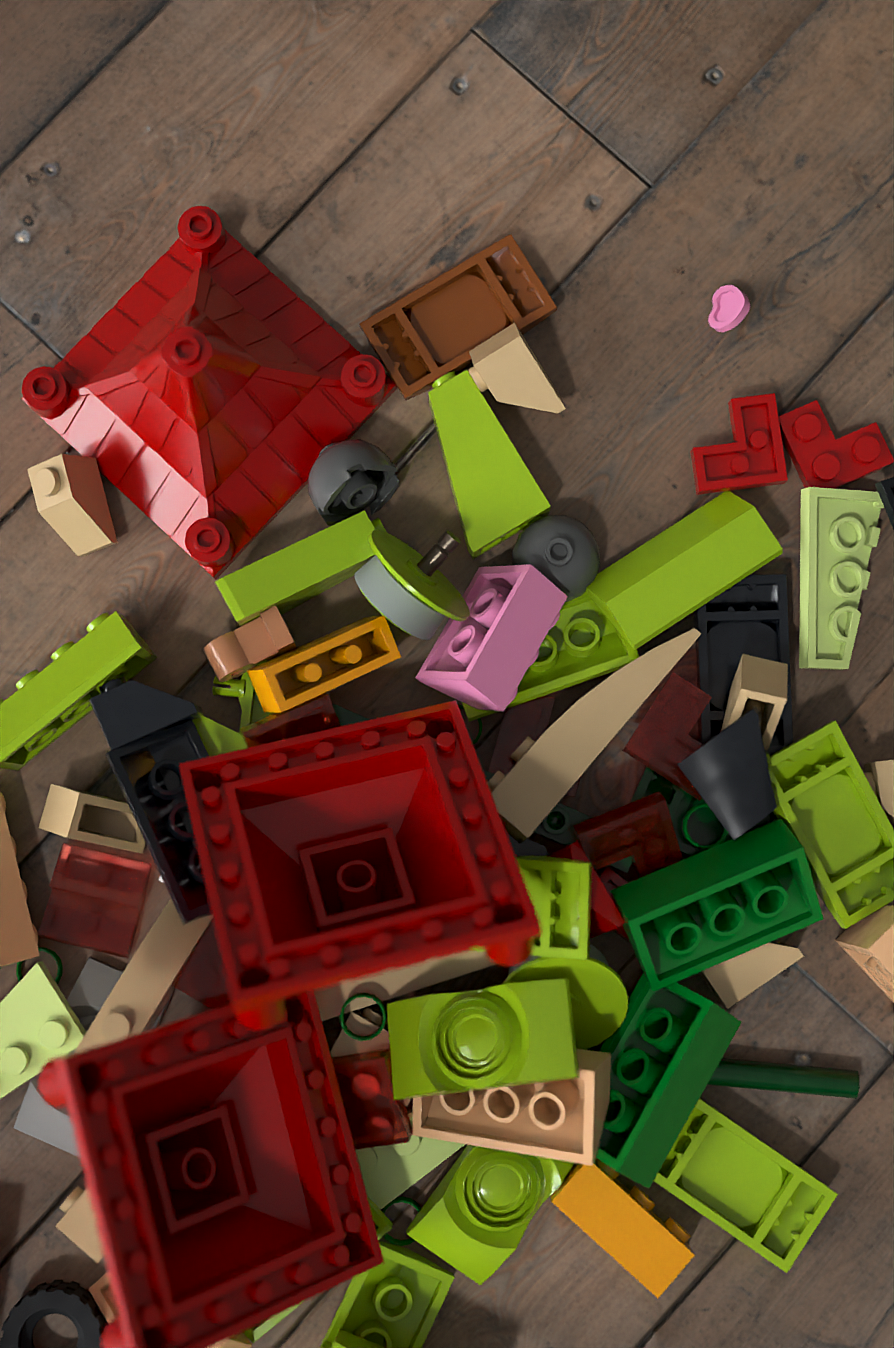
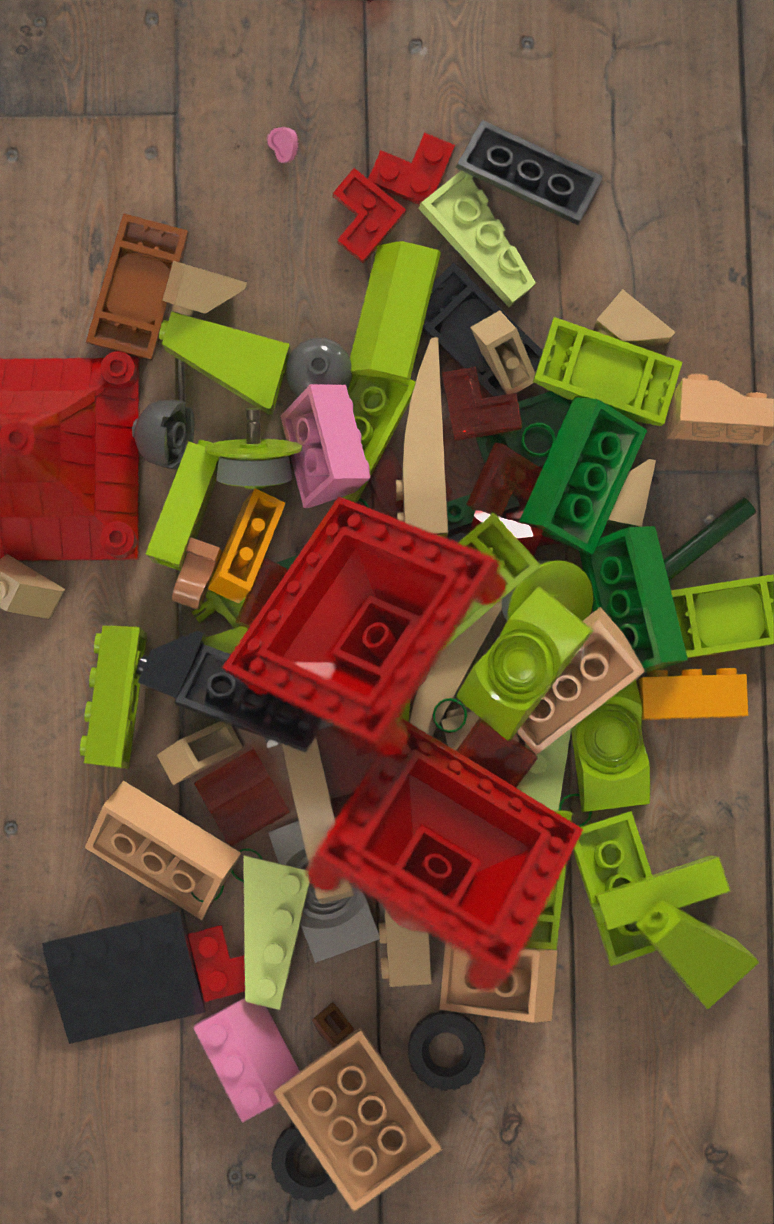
camera: 45 degrees left, 0 degrees up
(734, 775) = (526, 395): black slope -> none

